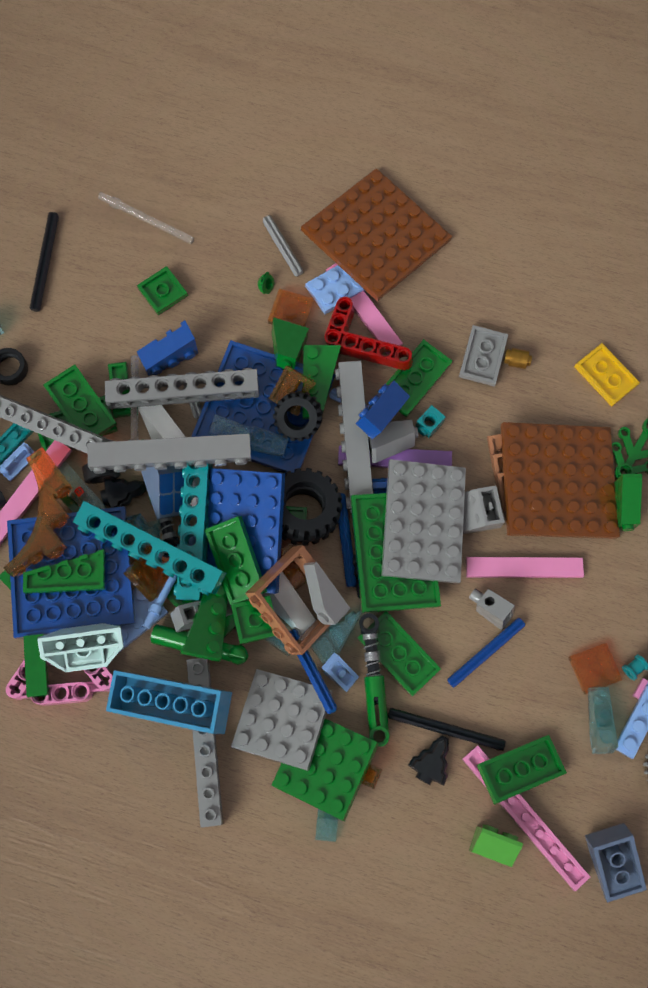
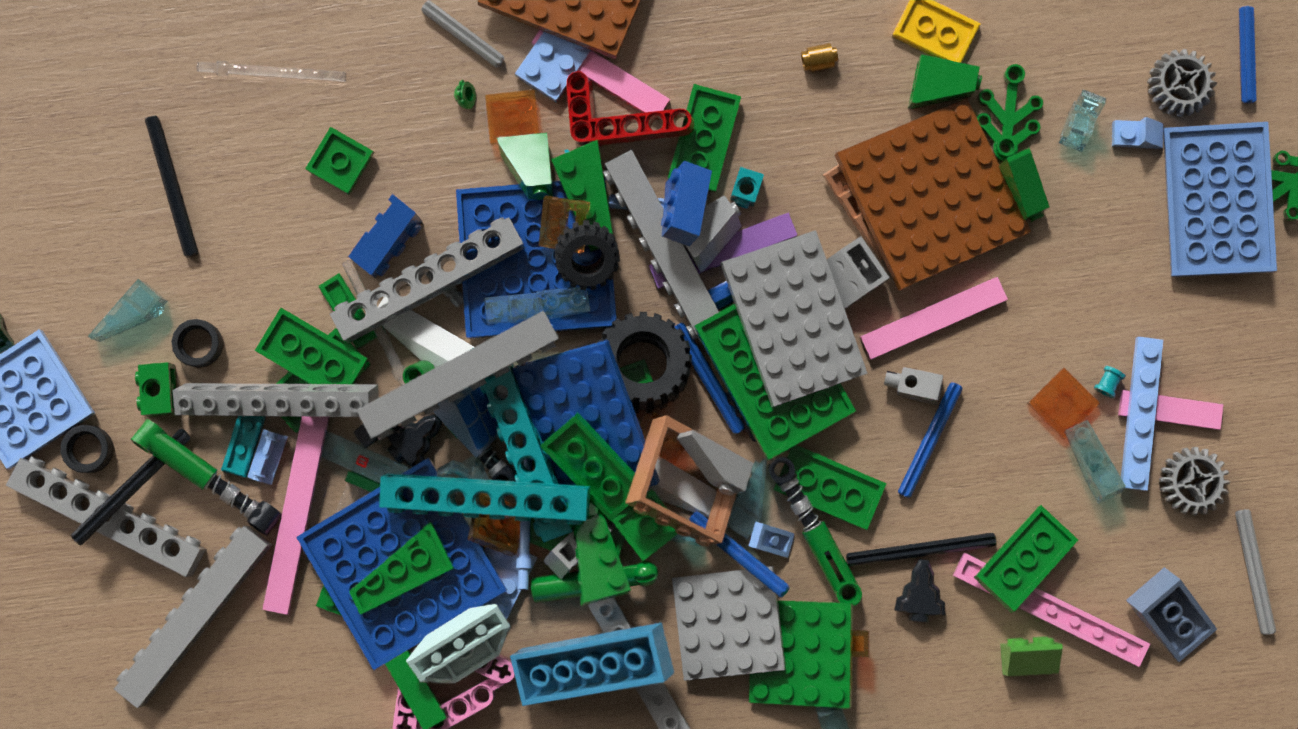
camera: 20 degrees left, 10 degrees up
(51, 515) = (353, 540): clear orange arch -> none
(483, 355) = (776, 72): light grey plate -> none
(597, 409) = (942, 81): none -> green slope

